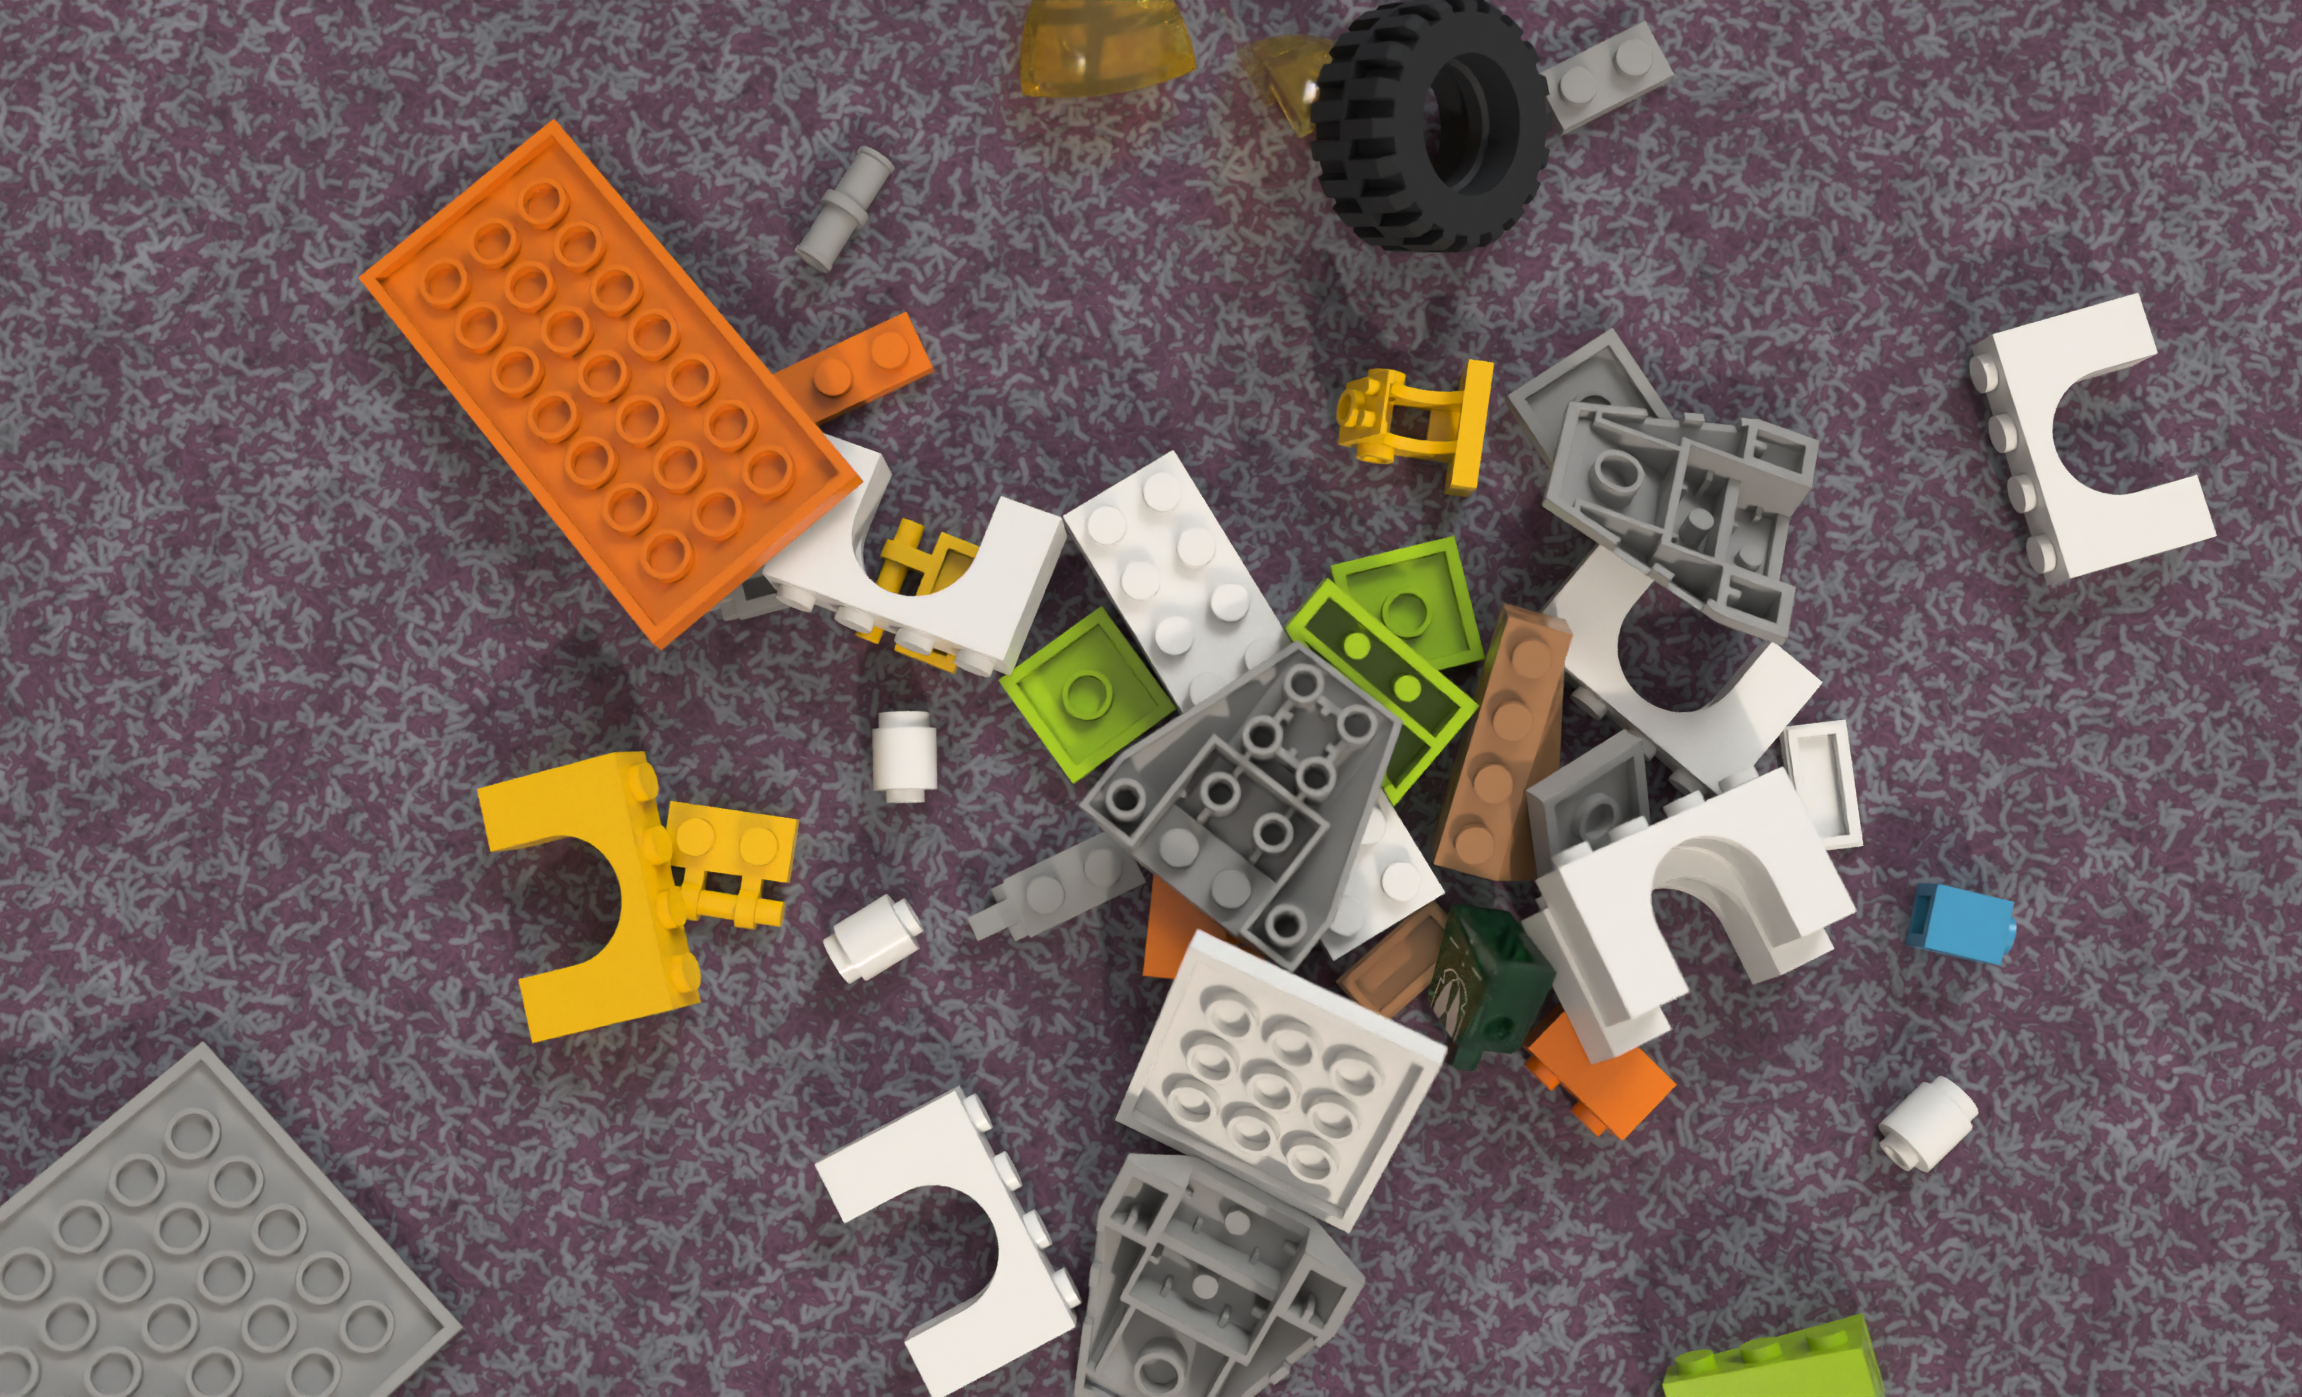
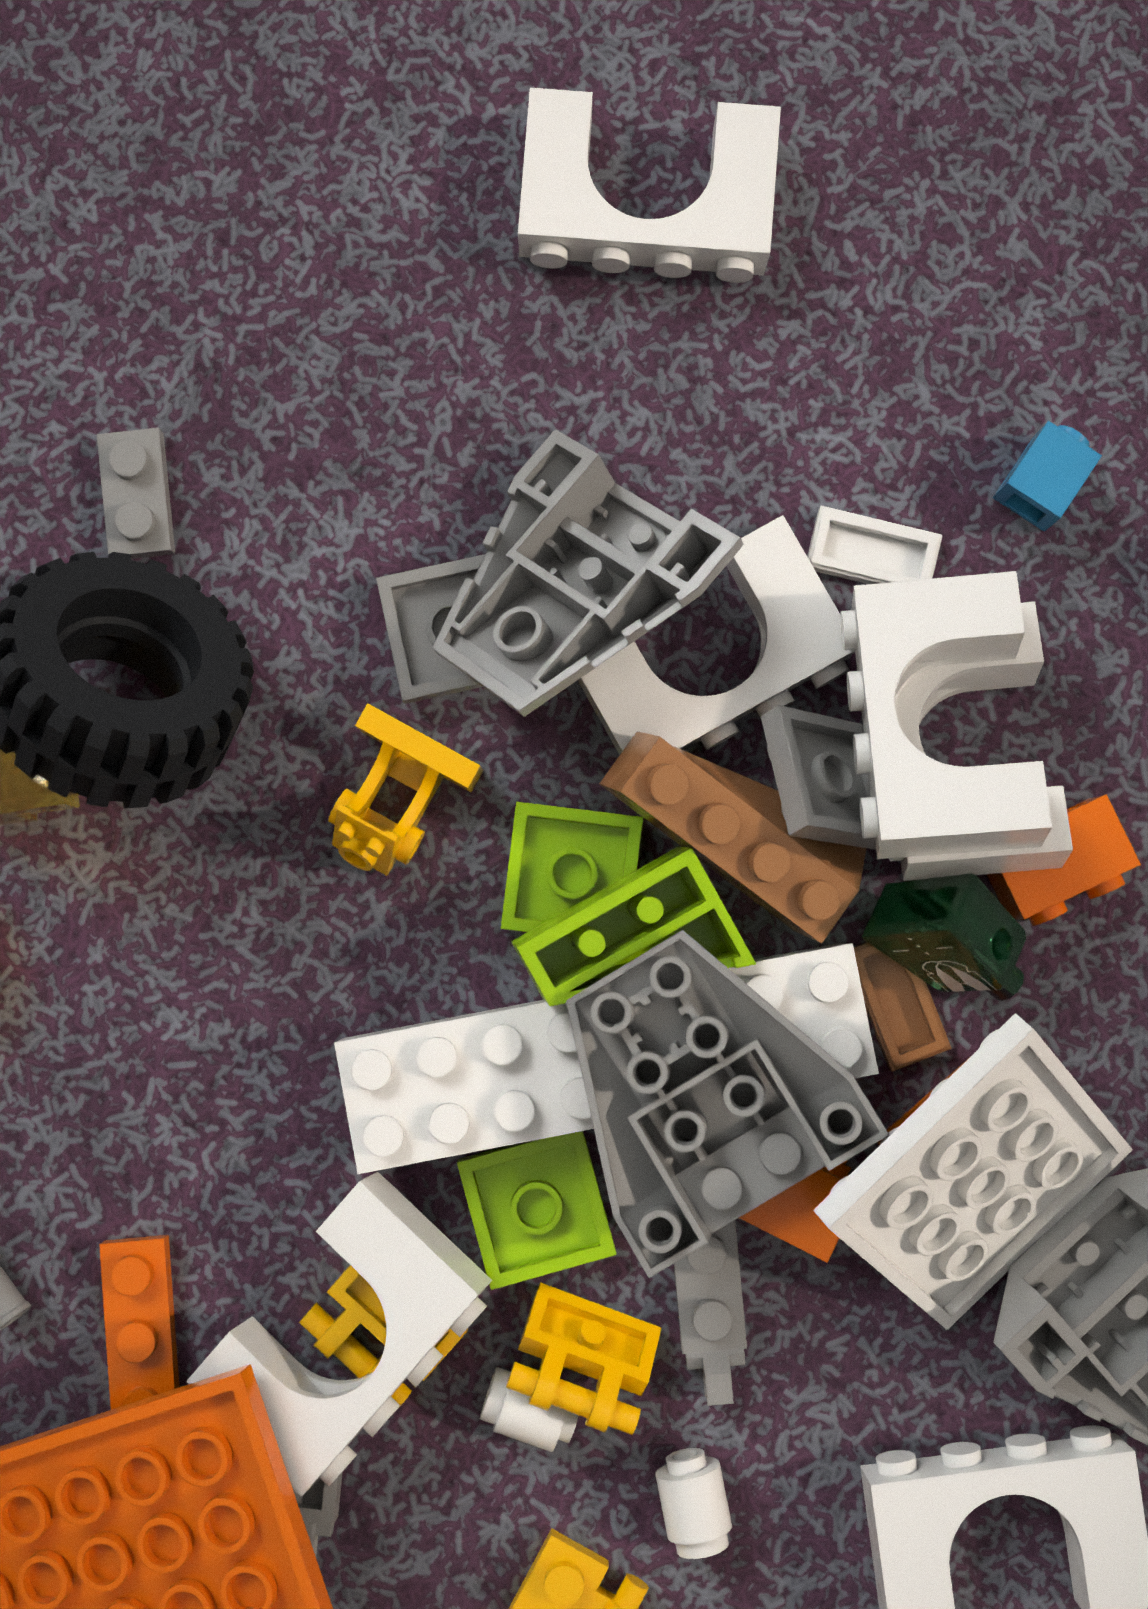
camera: 70 degrees left, 0 degrees up
(984, 788) = (589, 1341): none -> yellow plate

